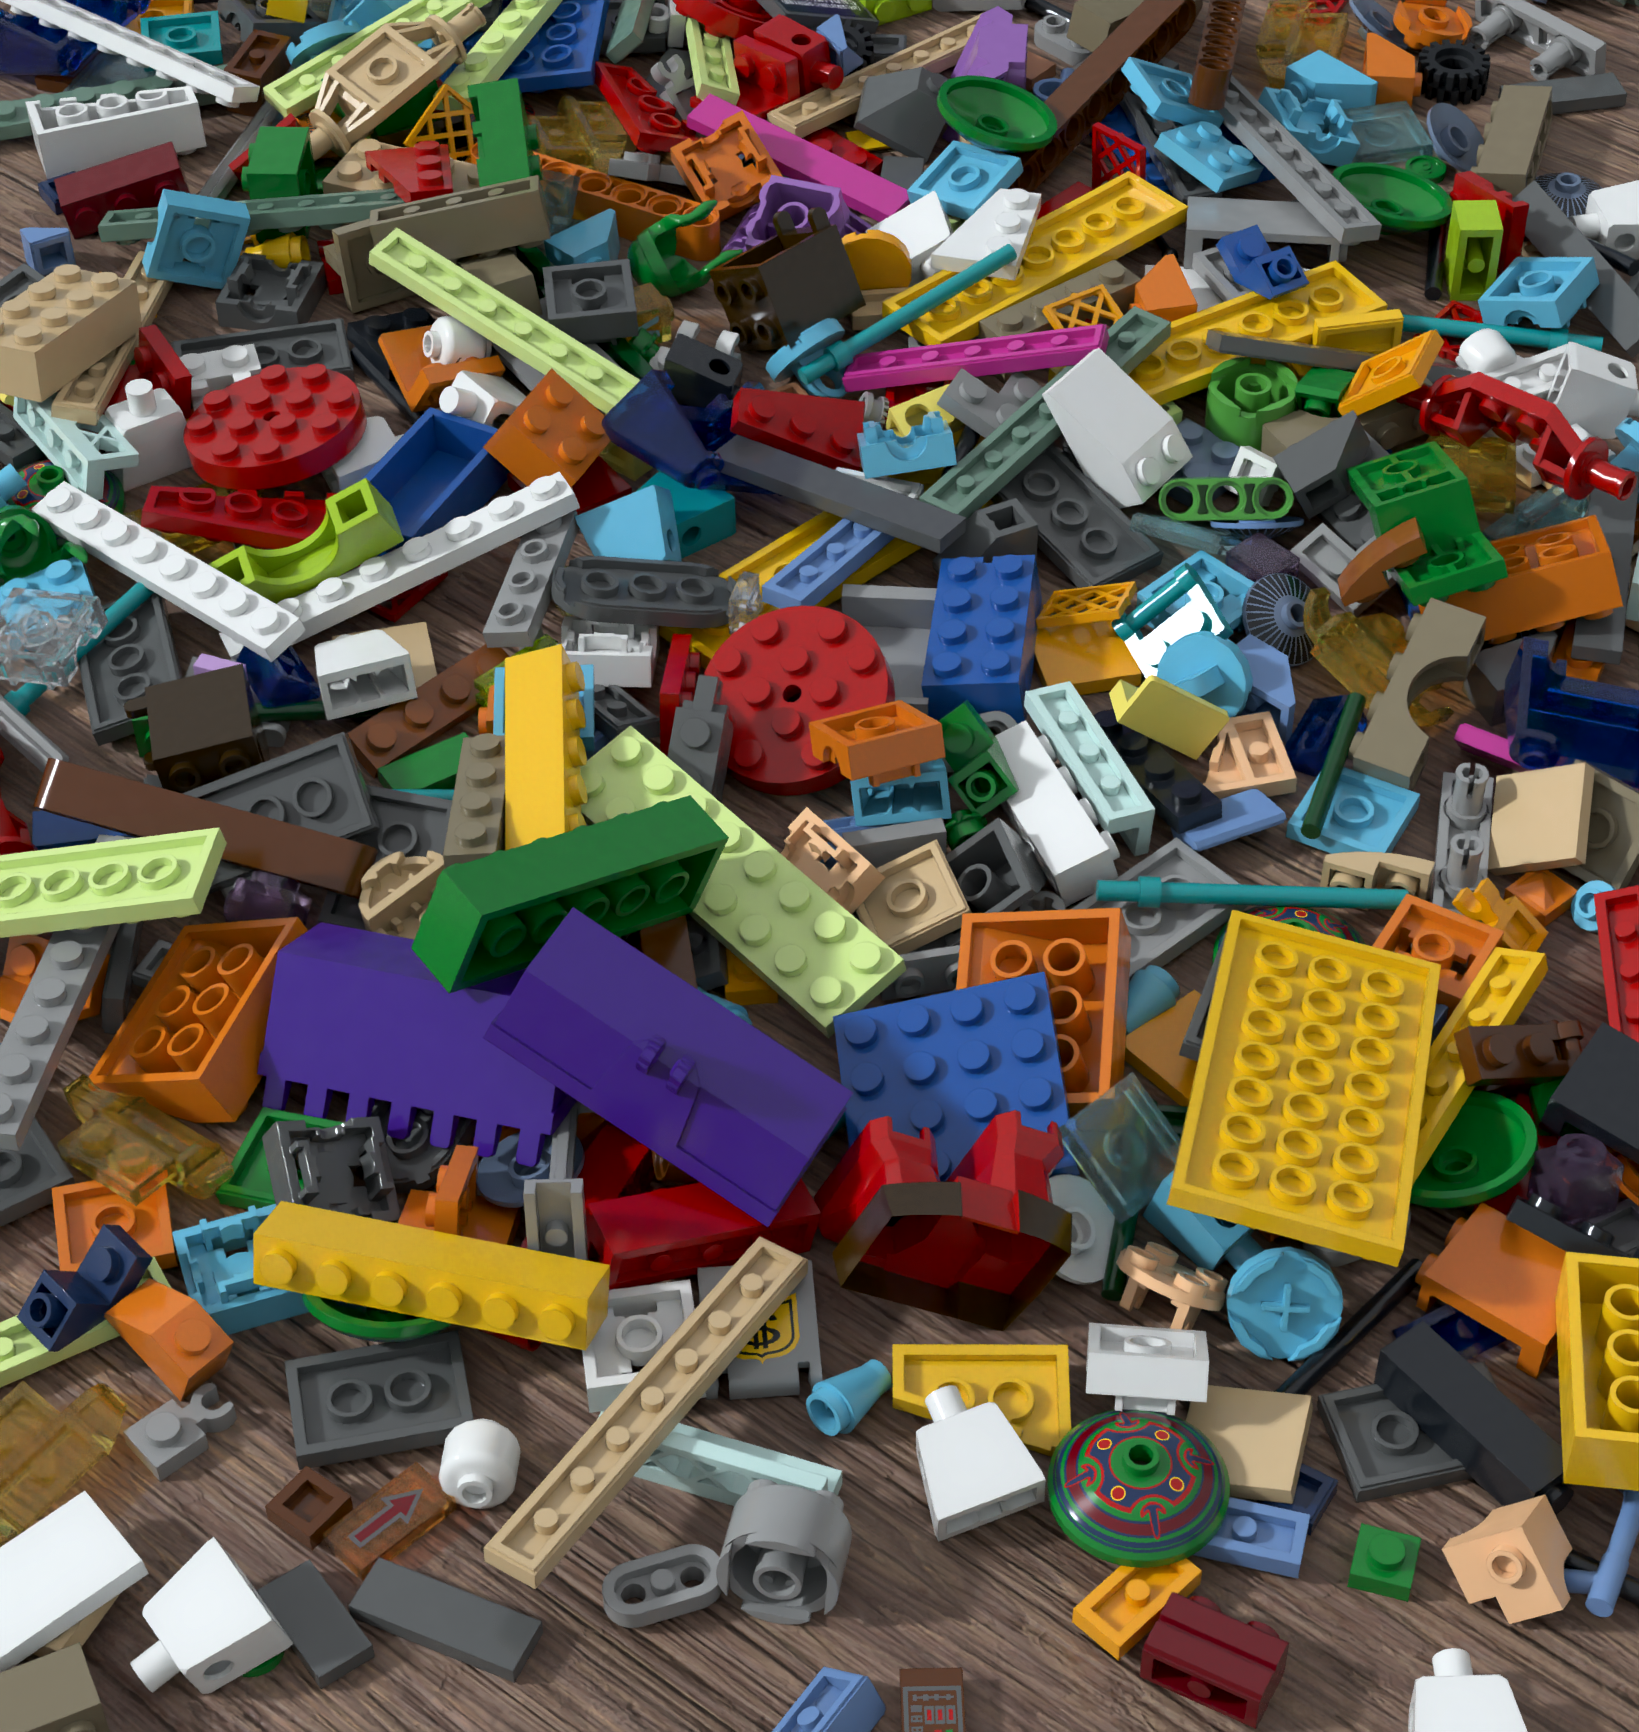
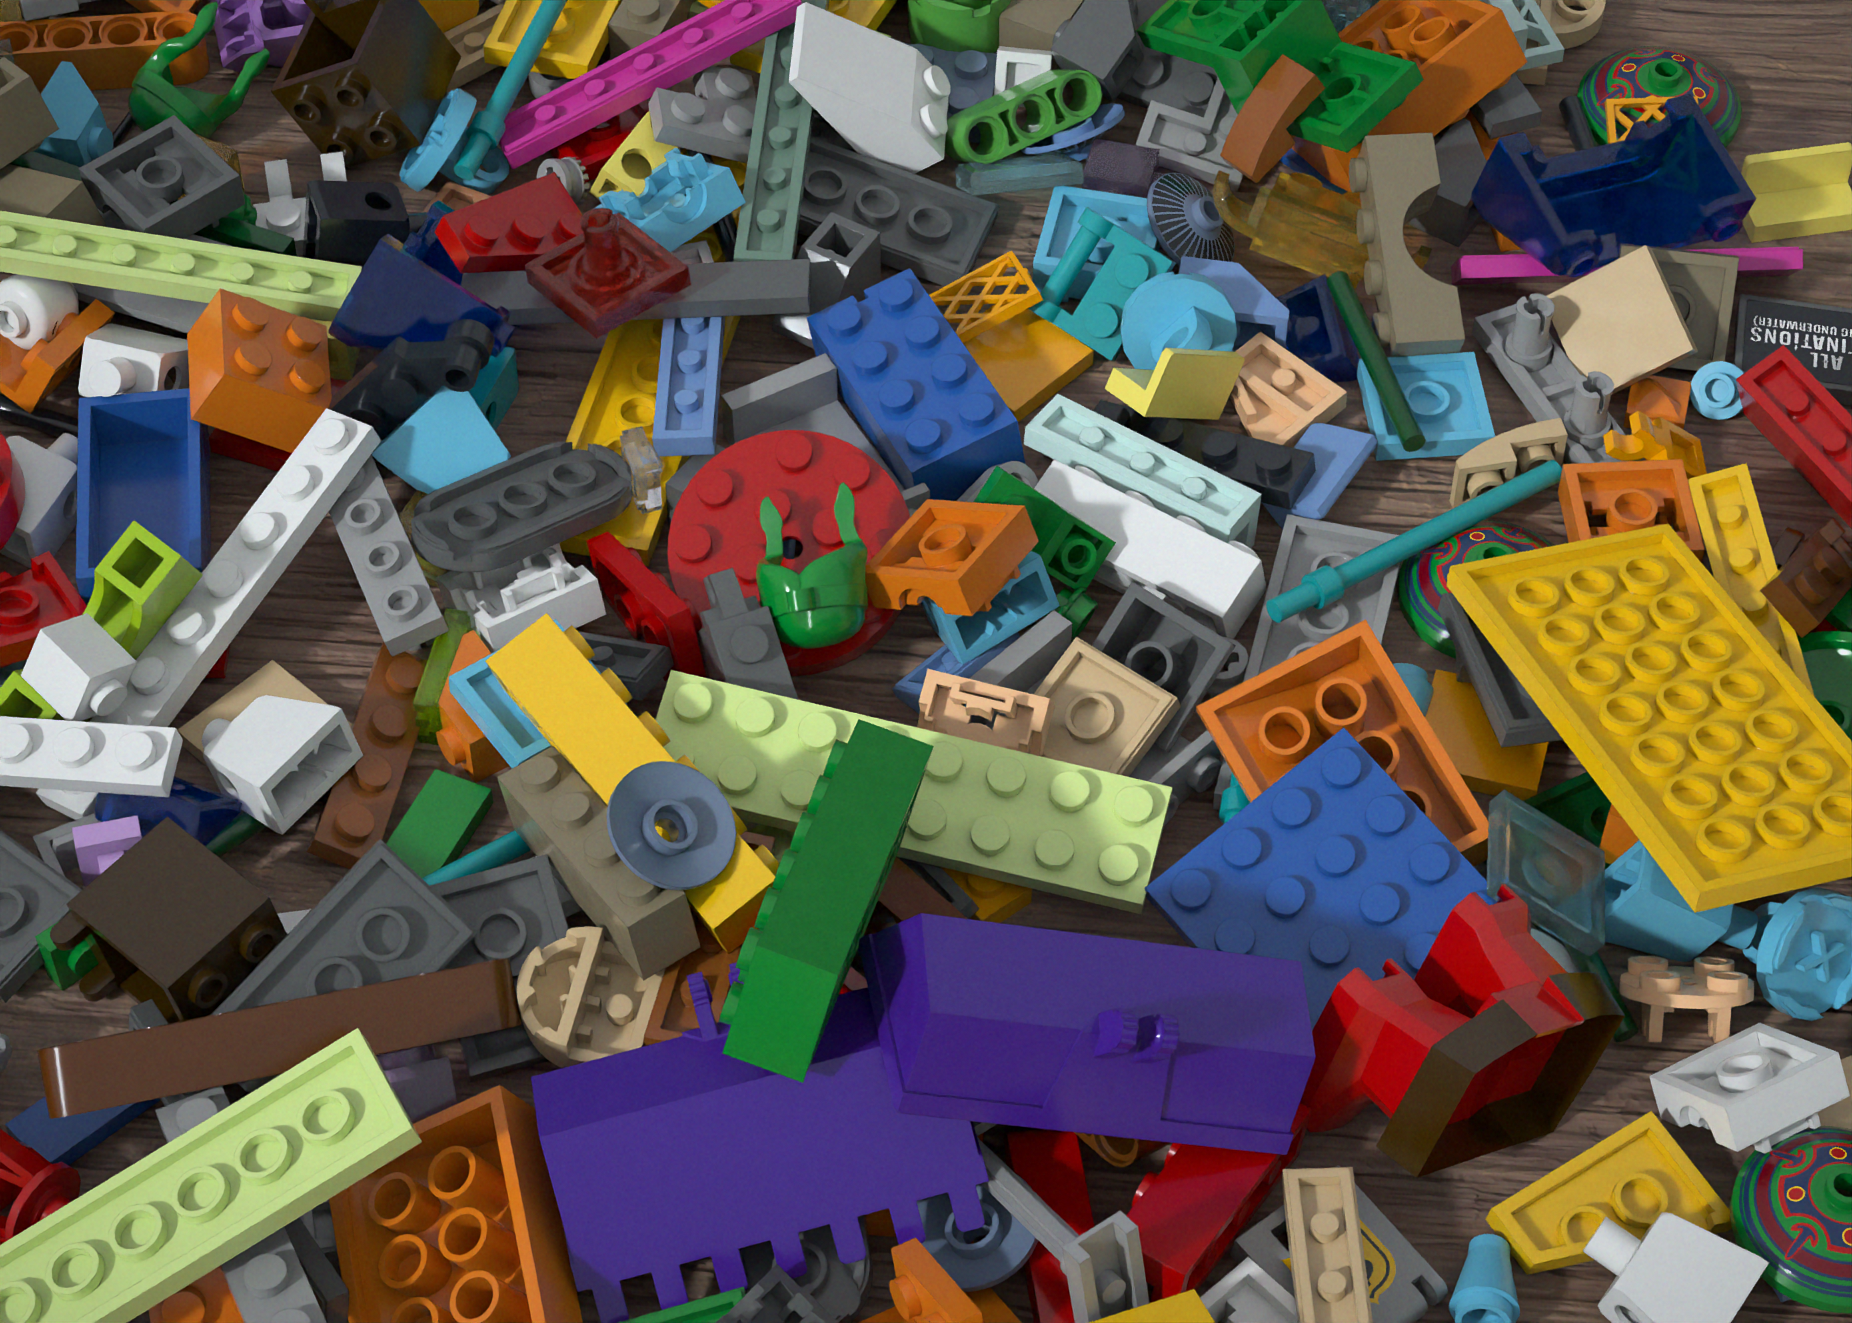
camera: 35 degrees left, 5 degrees up
(278, 559) = (79, 668): none -> white brick
(519, 782) = (684, 806): none -> sand blue dish
(625, 470) = (411, 373): none -> black plate
(770, 725) = (830, 593): none -> green hair
(816, 465) = (607, 273): none -> clear red plate

